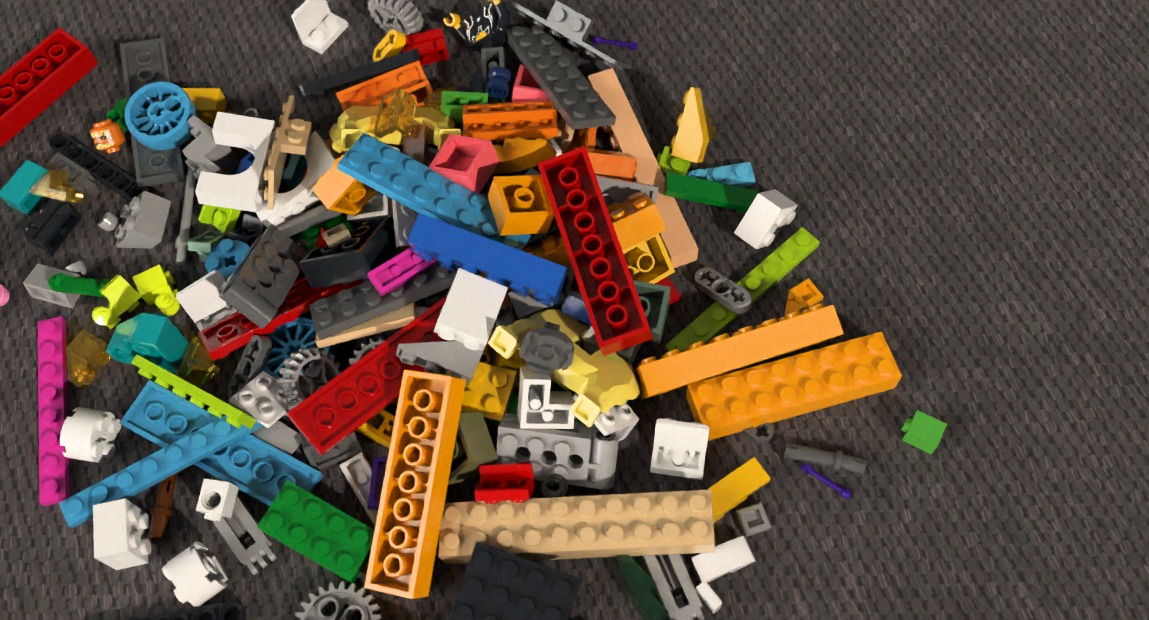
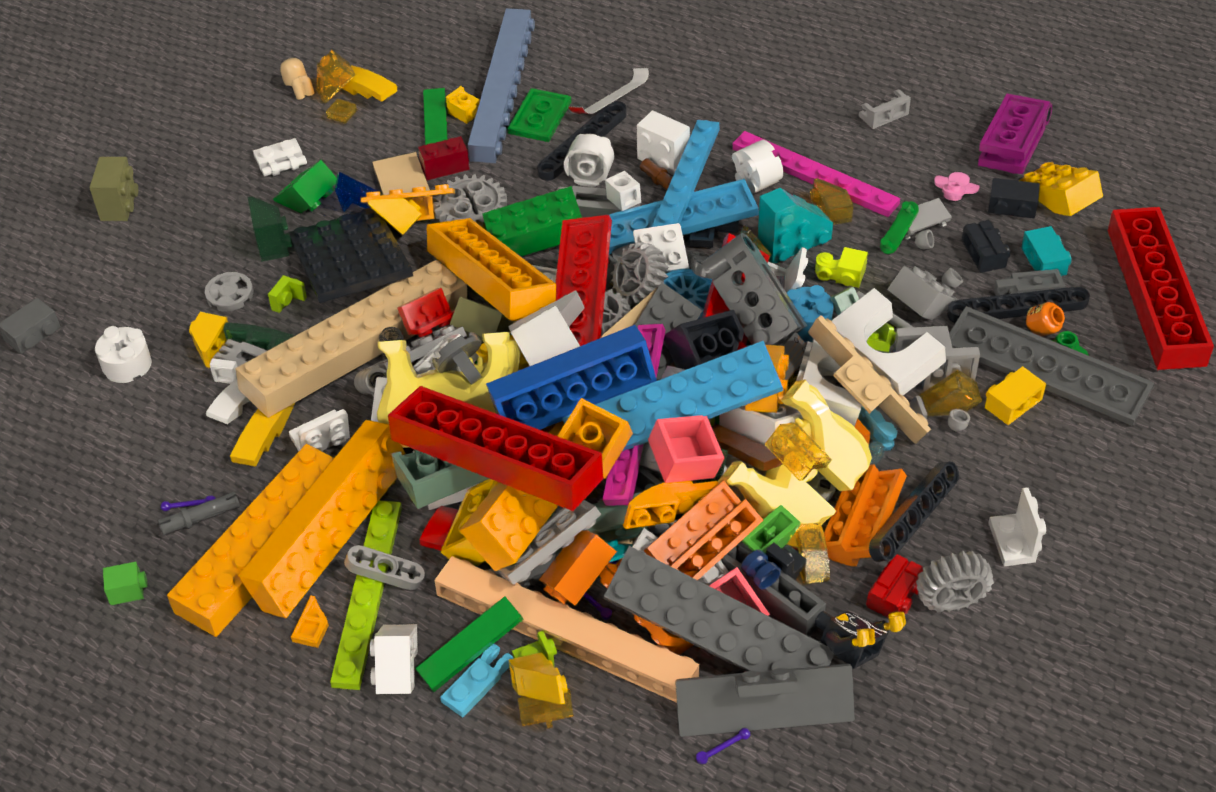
camera: 135 degrees right, 15 degrees down
(55, 186) = (1011, 259): clear yellow slope -> none
(120, 298) = (862, 236): neon yellow brick -> none
(160, 115) = (1014, 354): dark azure piece -> none
(198, 396) = (701, 214): lime plate -> none
(336, 235) = (730, 343): dark tan tile -> none
(389, 45) = (921, 554): yellow beam -> none
(753, 519) = (225, 441): light grey tile -> none

